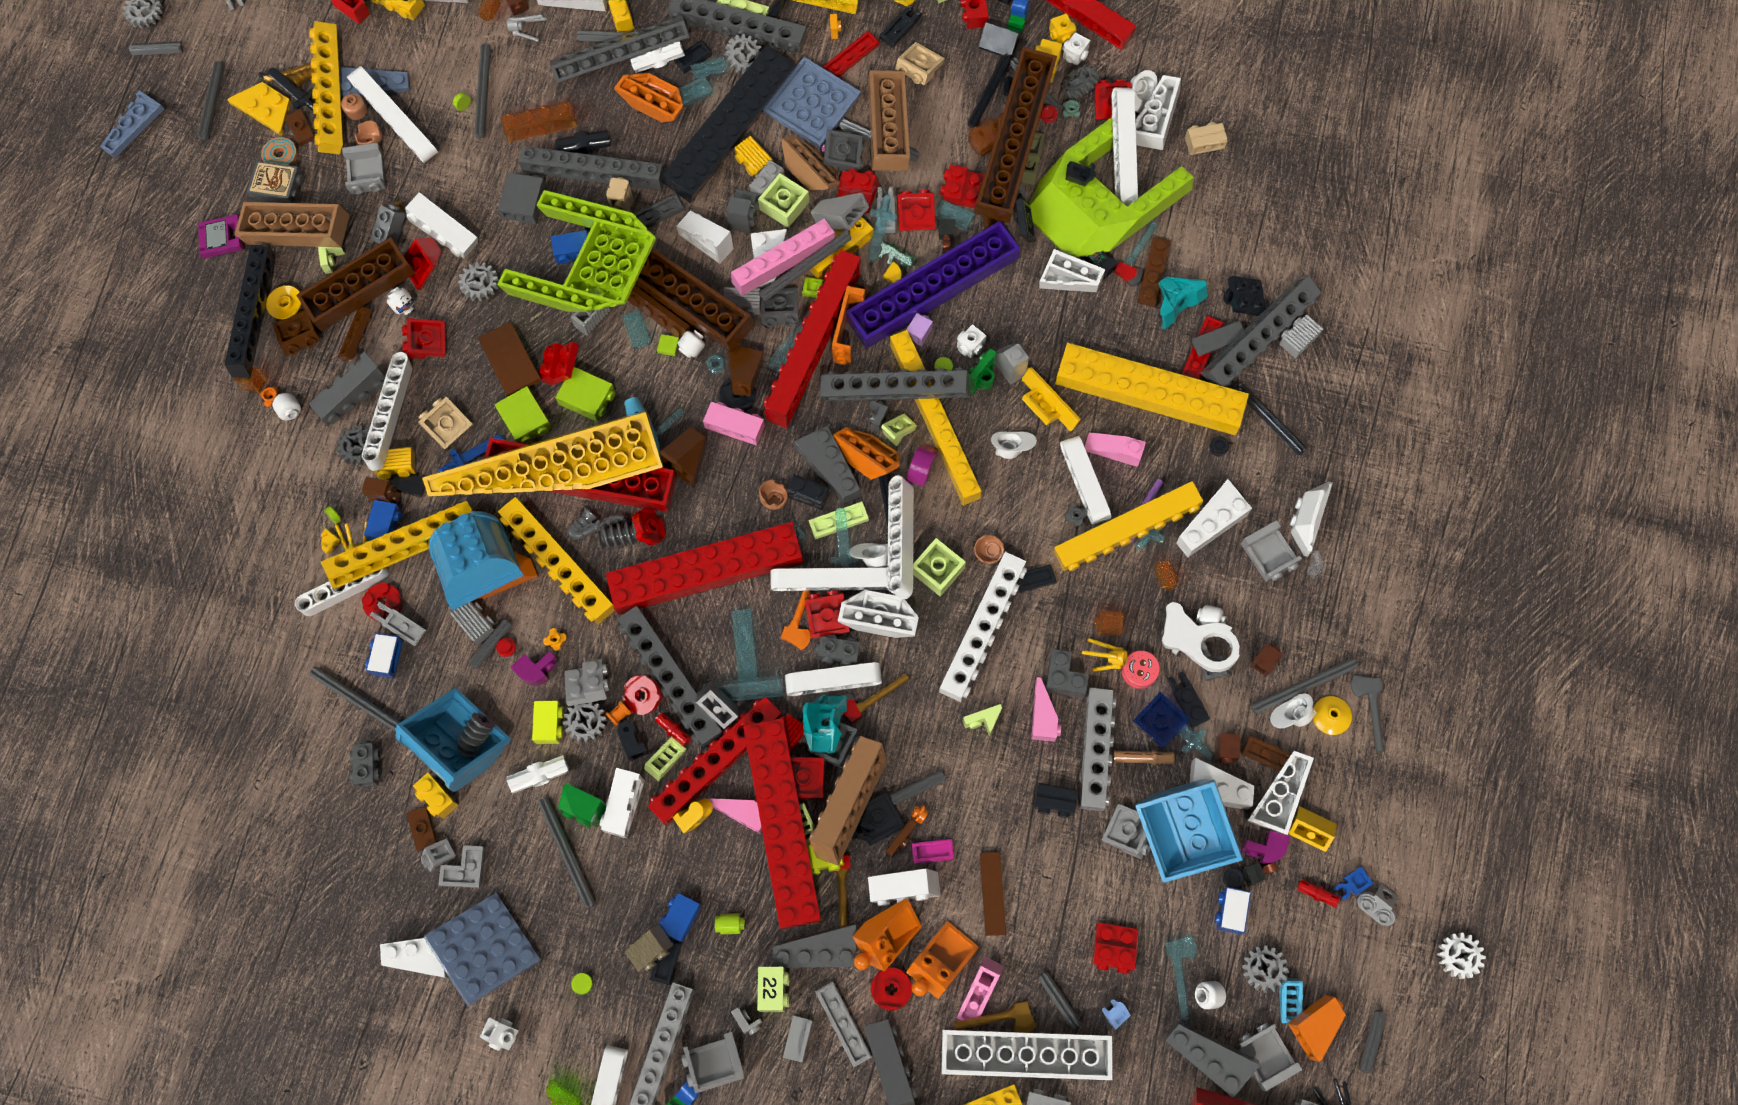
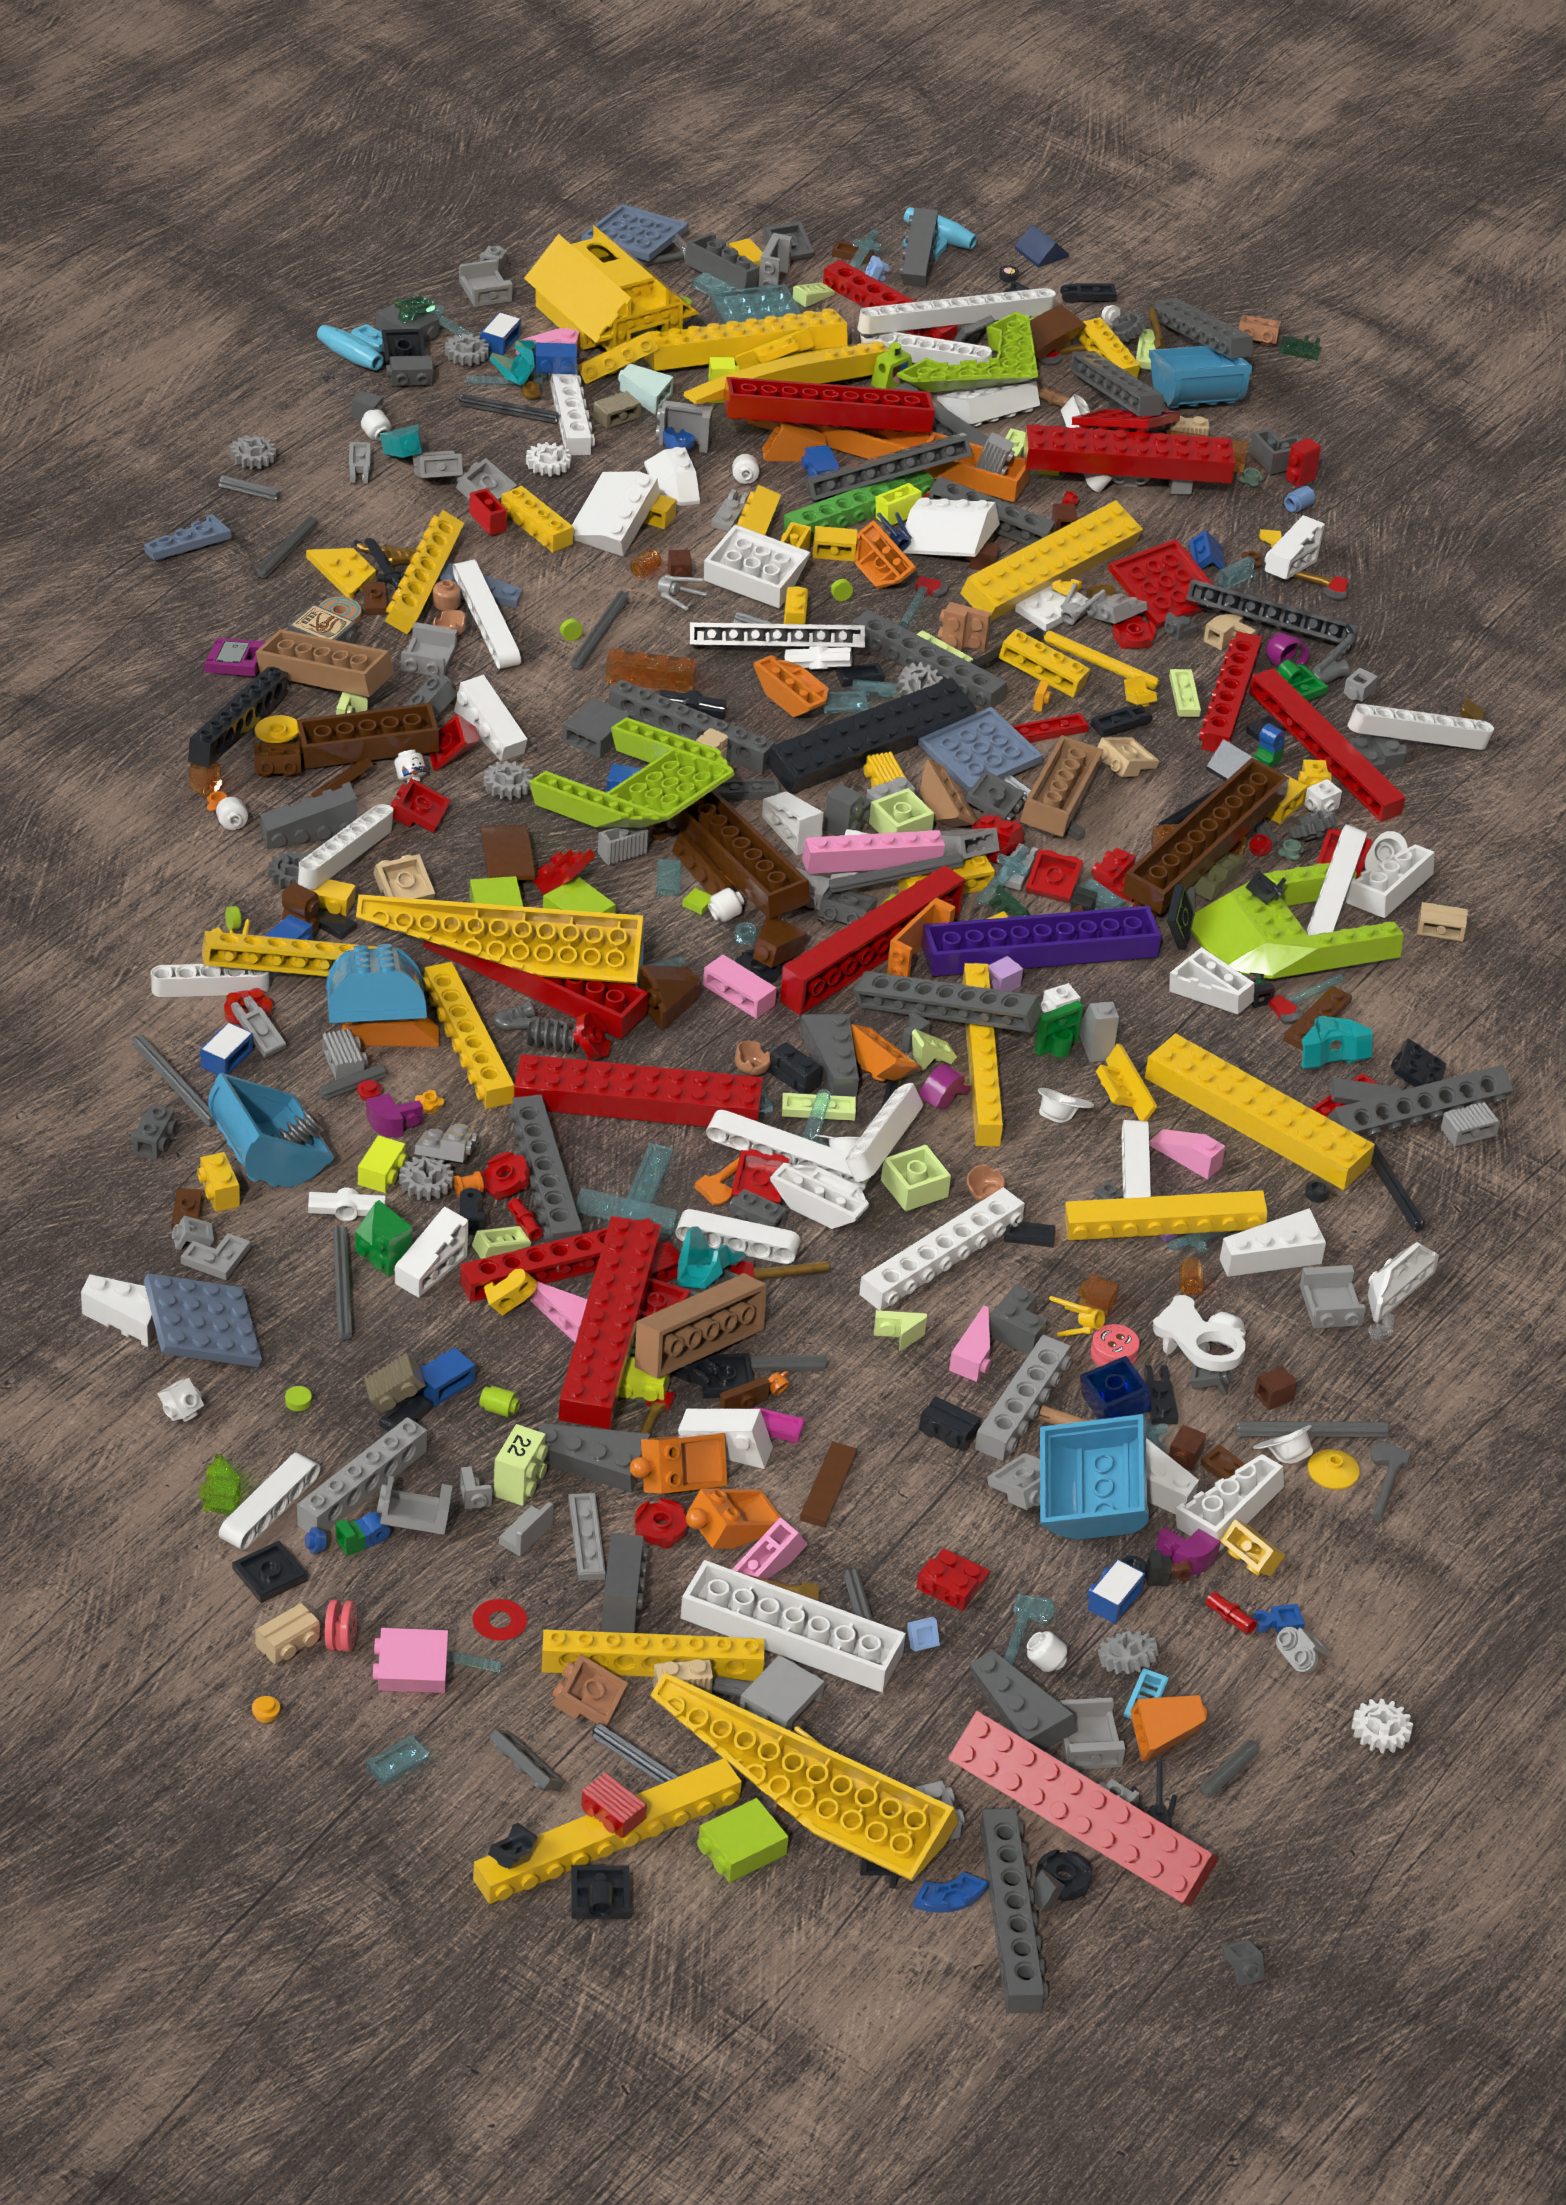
camera: 15 degrees right, 30 degrees down
(717, 705) = (589, 1204): flat silver brick -> none

